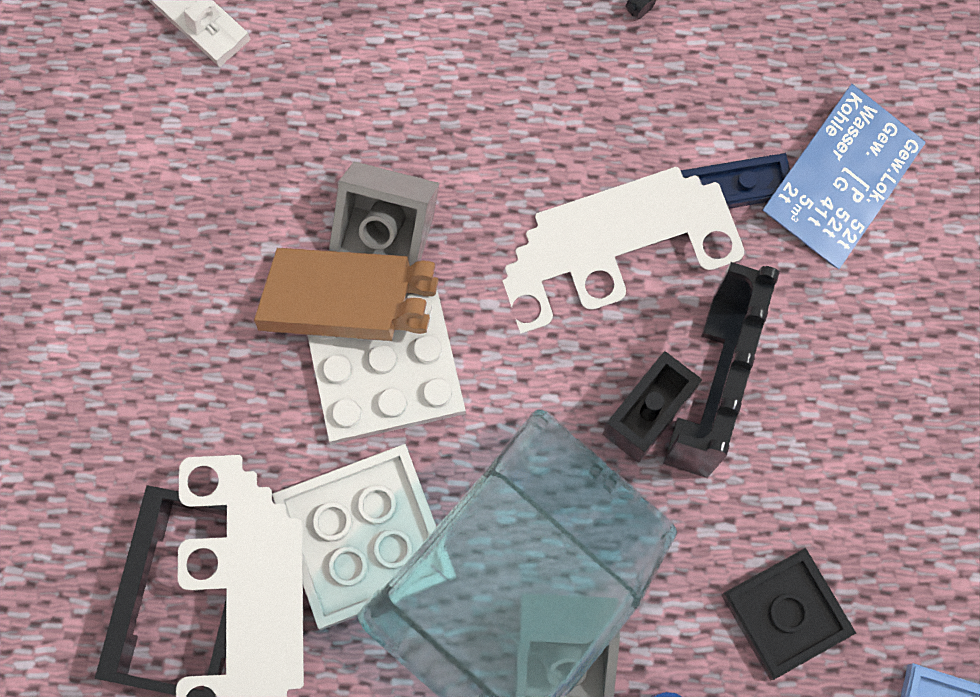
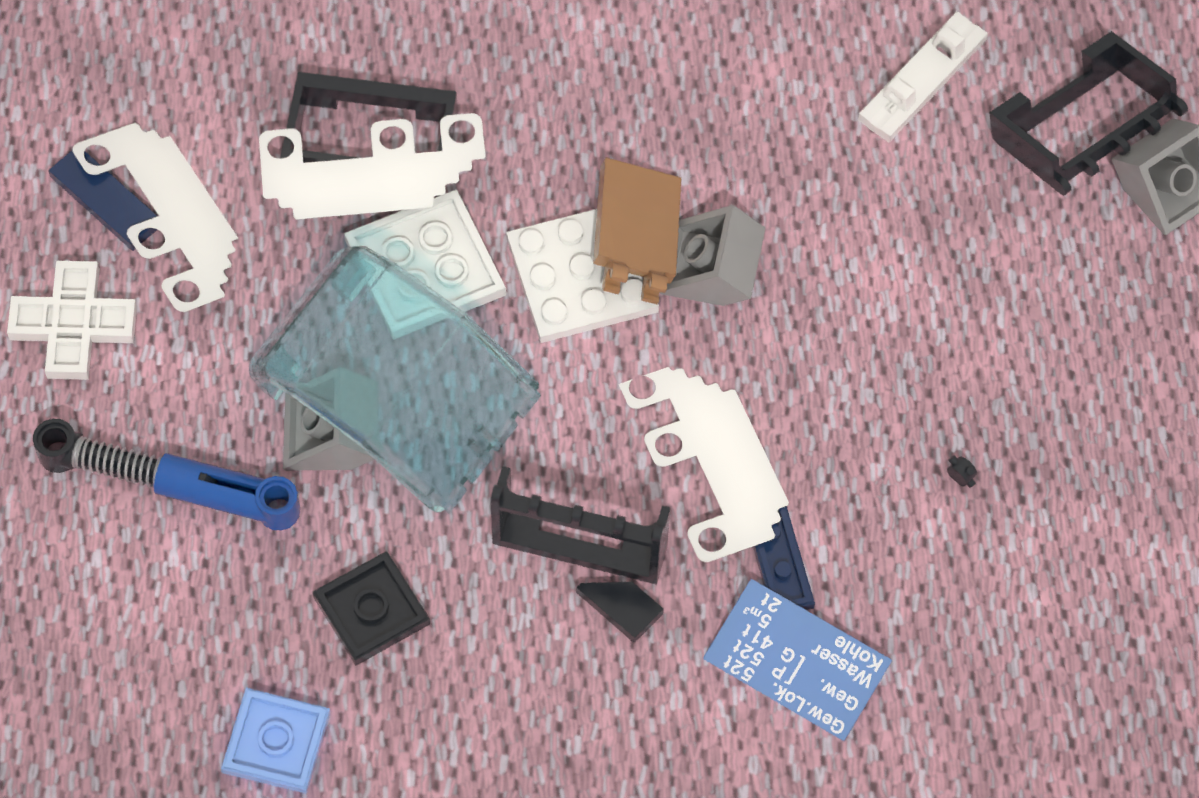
camera: 85 degrees right, 10 degrees down
(651, 406) = (548, 474): black brick -> none
(786, 342) = (622, 605): none -> black tile

